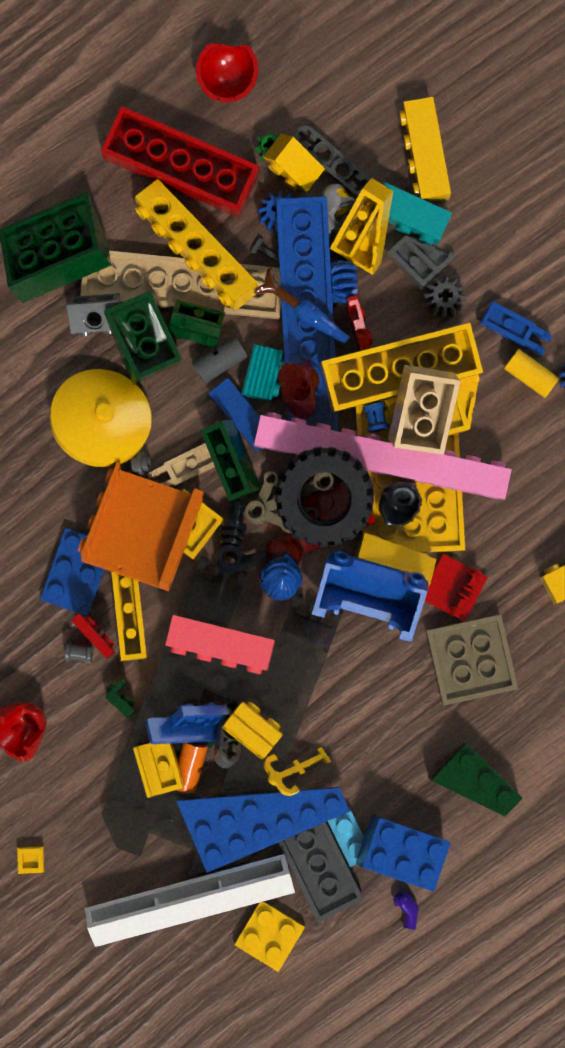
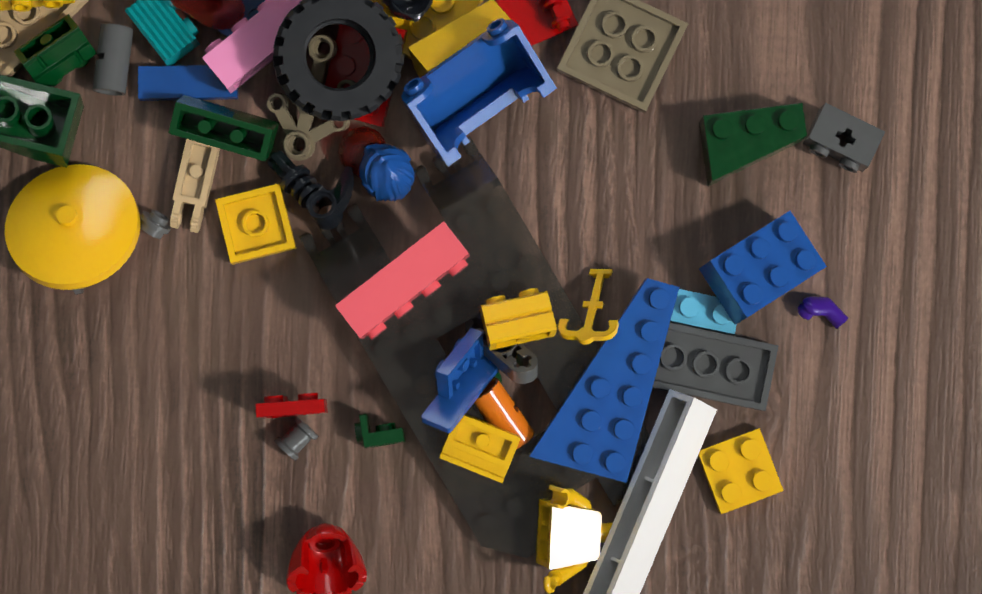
camera: 55 degrees left, 0 degrees up
(70, 581) = (212, 377): blue plate -> none
(128, 618) = (291, 352): yellow brick -> none
(140, 528) = (219, 274): orange panel -> none
(147, 862) = (567, 535): none -> torso
(532, 851) = (861, 138): none -> dark grey brick

